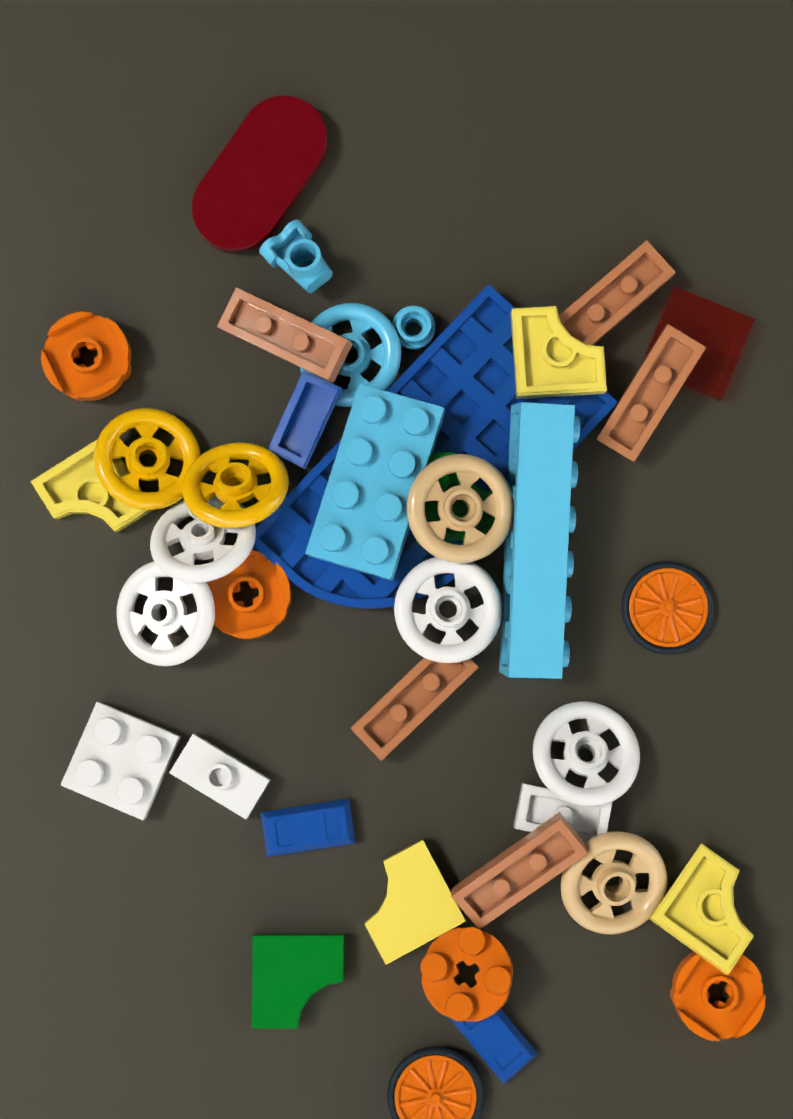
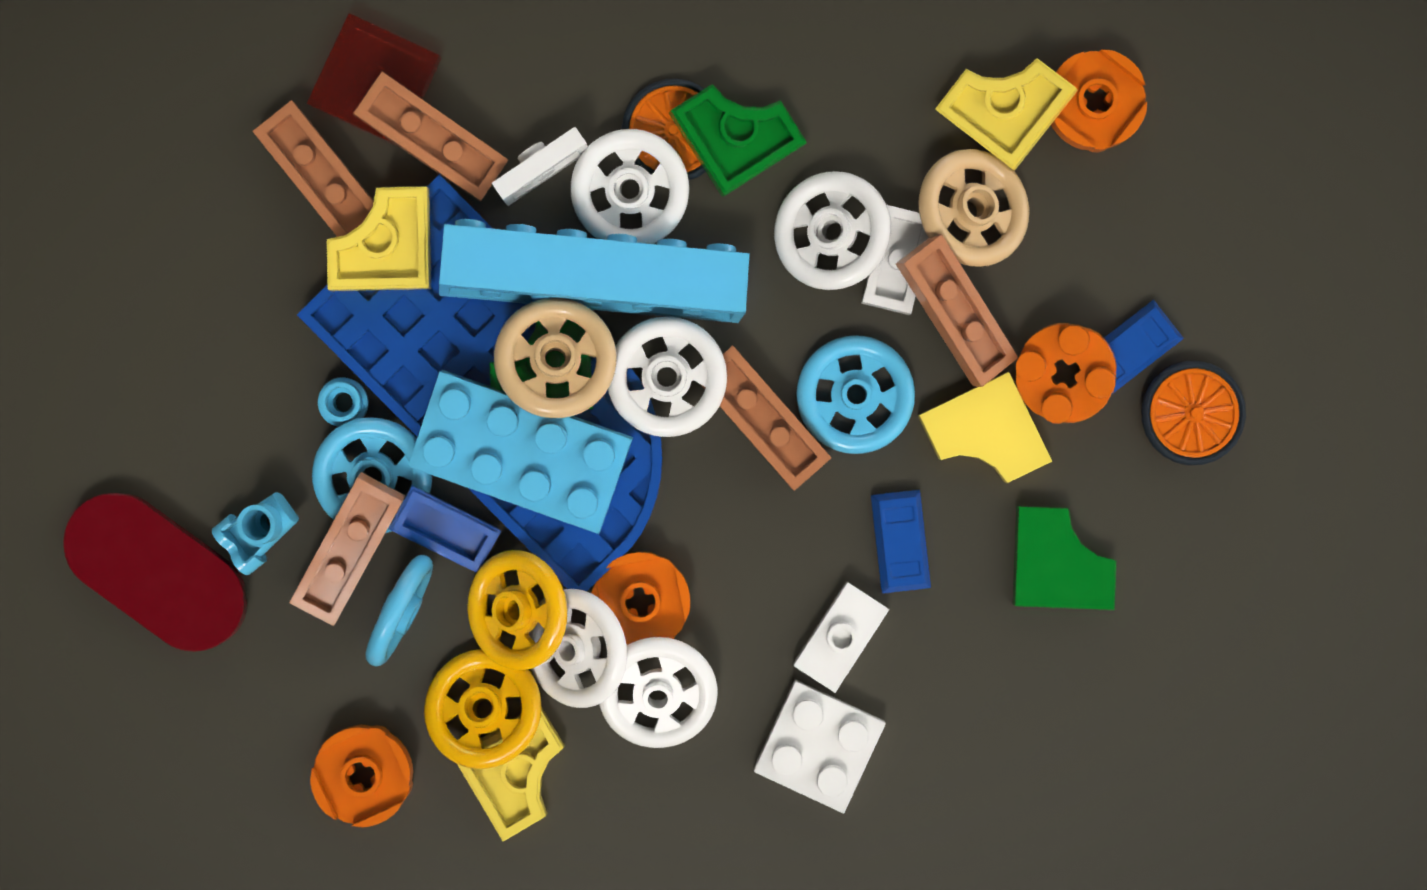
camera: 80 degrees left, 5 degrees up
(231, 381) = (399, 610): none -> medium azure plate
(464, 752) = (825, 365): none -> medium azure plate
(630, 489) = (539, 164): none -> white plate
(652, 567) = (628, 146): none -> white plate
(663, 663) = (735, 139): none -> green tile

